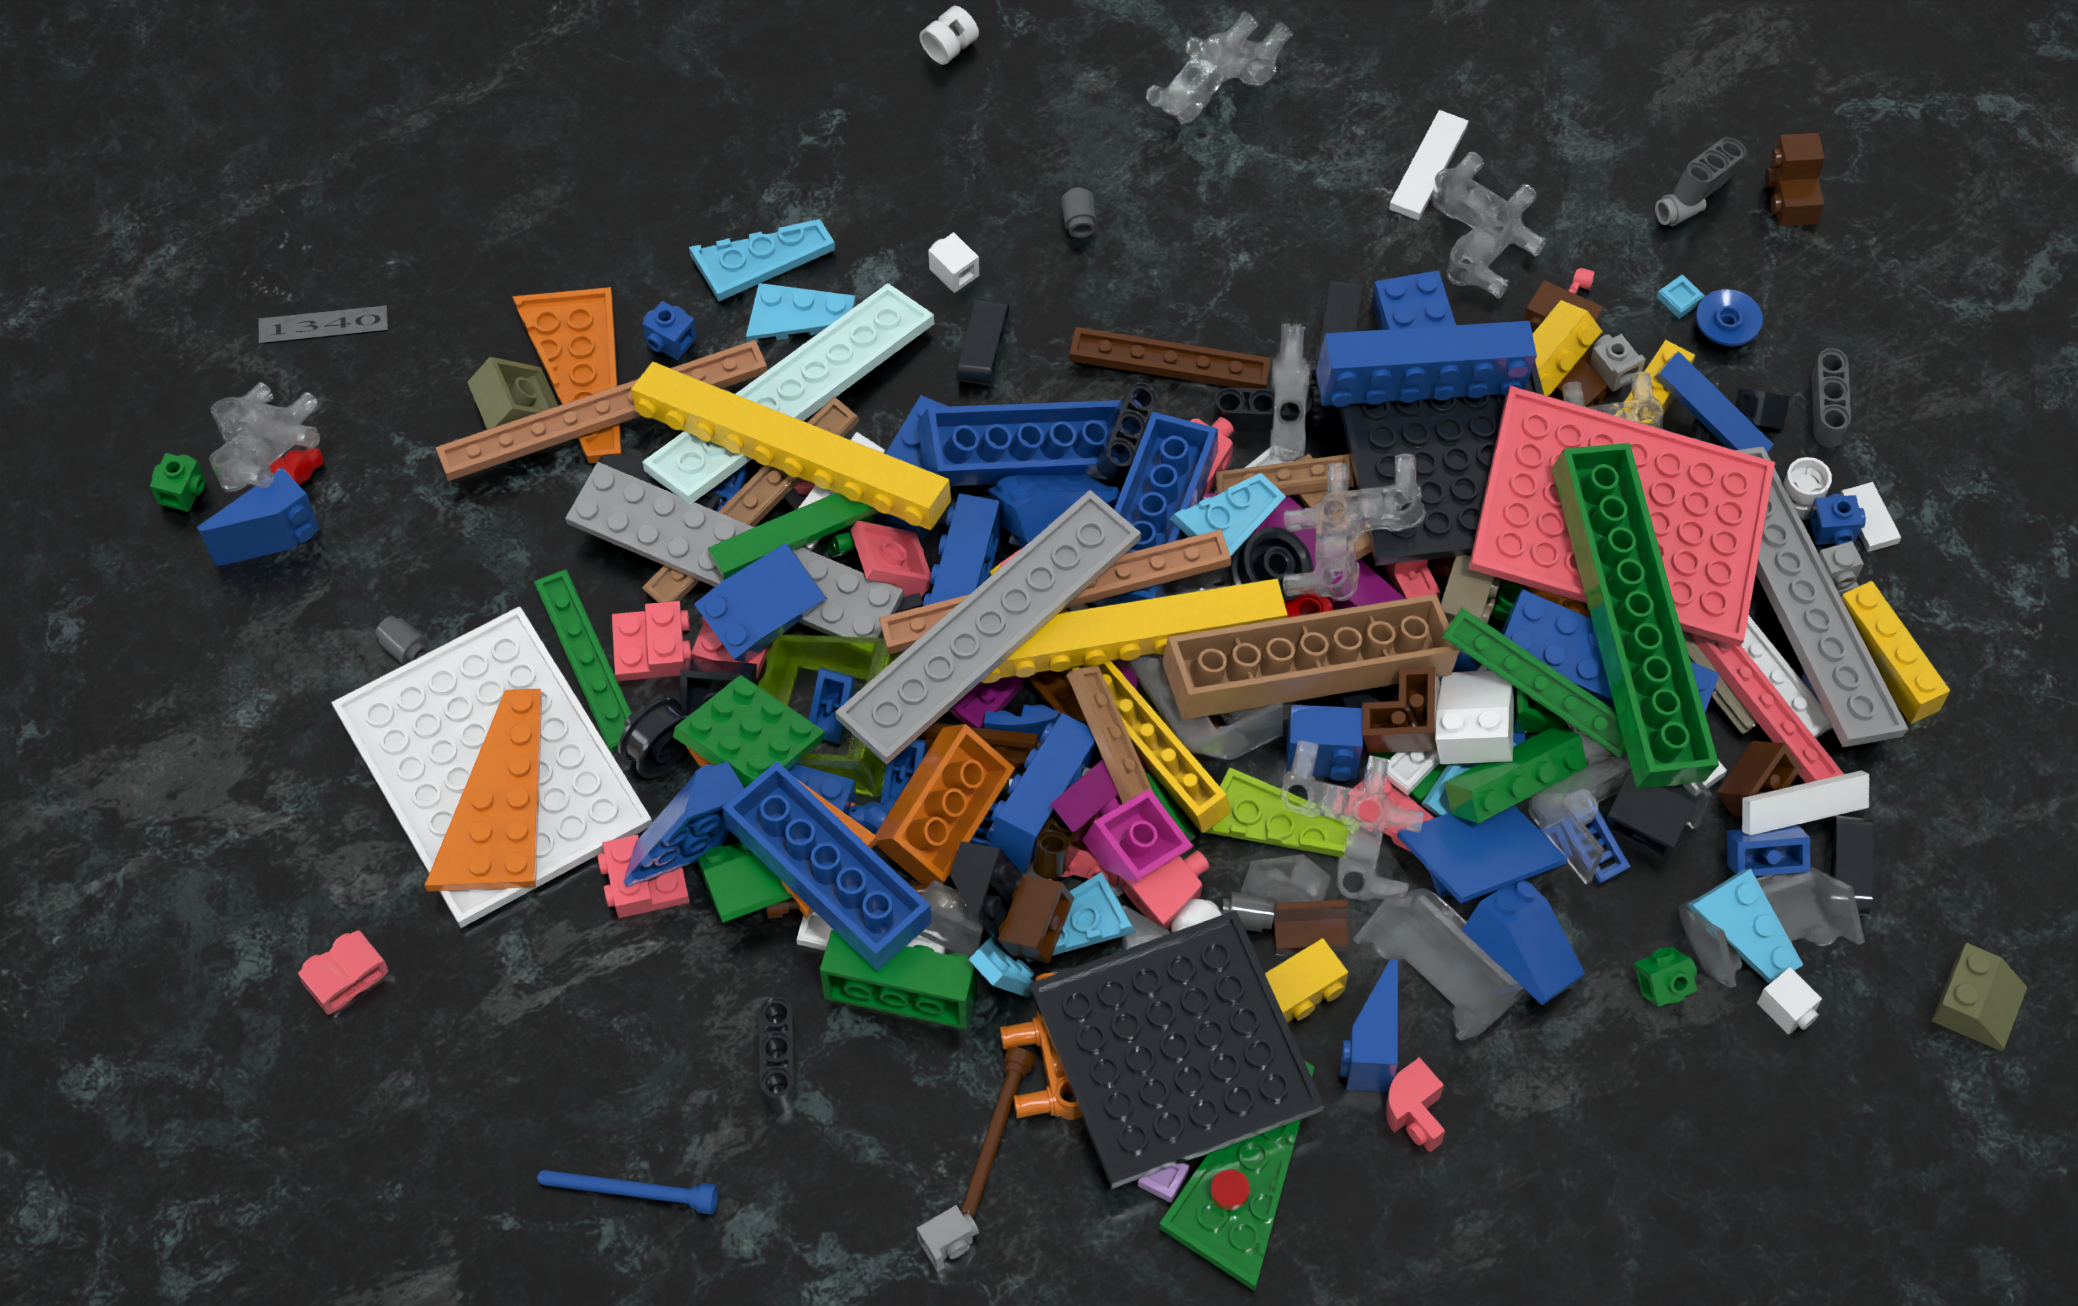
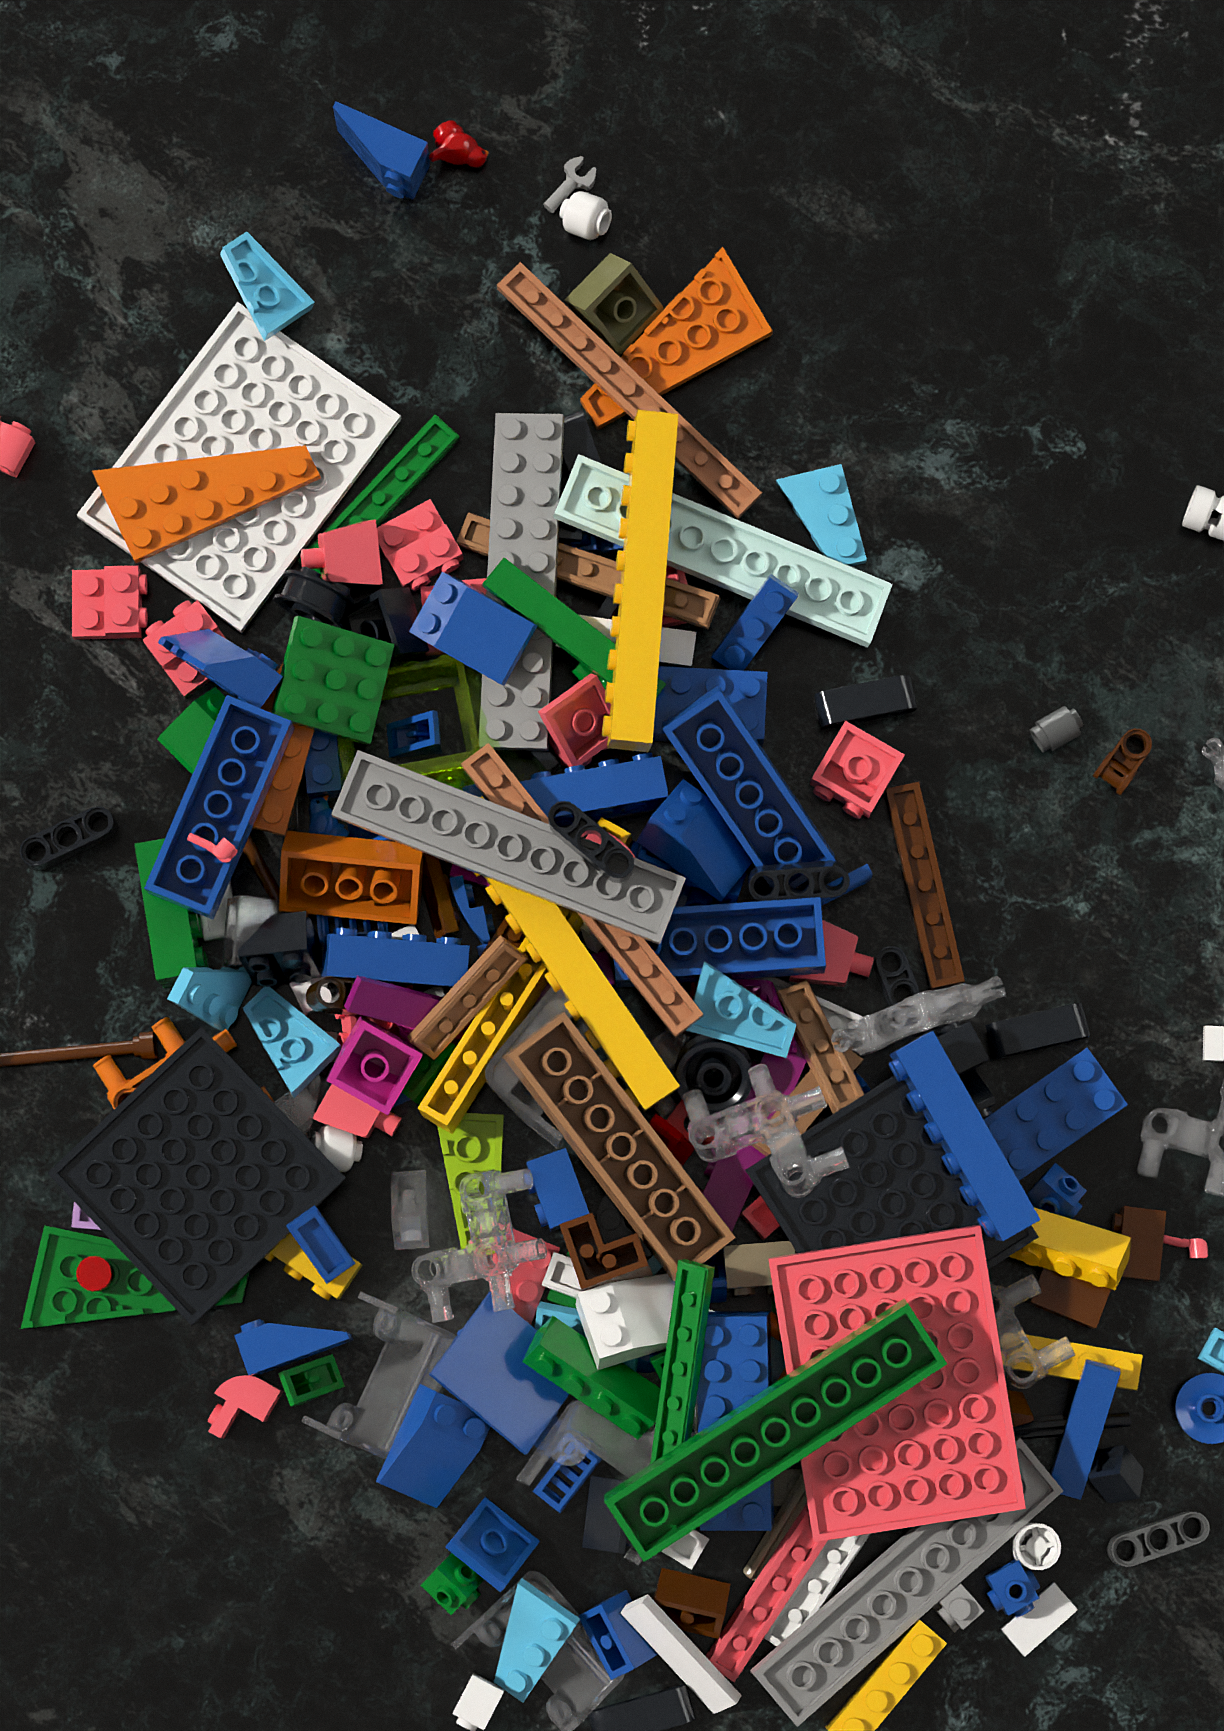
camera: 65 degrees right, 20 degrees up
(177, 481) = (397, 53): green brick -> none
(258, 436) = (462, 110): clear pin -> none
(323, 324) = (627, 89): flat silver sticker -> none
(331, 673) = (264, 286): none -> medium azure wing
(382, 394) = (571, 183): none -> light grey bar
(401, 639) = (324, 330): dark grey brick -> none
(420, 390) = (585, 215): none -> white head
(560, 930) = (108, 603): none -> coral plate
(628, 688) = (347, 554): none -> coral torso
(669, 330) = (747, 406): blue brick -> none
(750, 261) = (865, 445): medium azure wing -> none
(870, 391) = (755, 624): none -> blue plate
(876, 866) = (223, 850): none -> coral hand
(953, 262) = (944, 634): white brick -> none
(1030, 530) = (585, 825): none -> black beam
(1035, 918) = (271, 1005): reddish brown brick -> none
(1043, 367) = (855, 771): none -> coral plate
(1134, 176) = (1121, 764): none -> reddish brown piece
(1253, 910) = (368, 1186): dark grey brick -> none
(1291, 958) = (320, 1244): none -> blue tile
(1304, 923) = (375, 1249): reddish brown panel -> none
(1418, 1037) = (311, 1380): none -> green slope
(1615, 361) = (1078, 1318): light grey brick -> none
(1642, 927) = (492, 1544): none -> blue plate

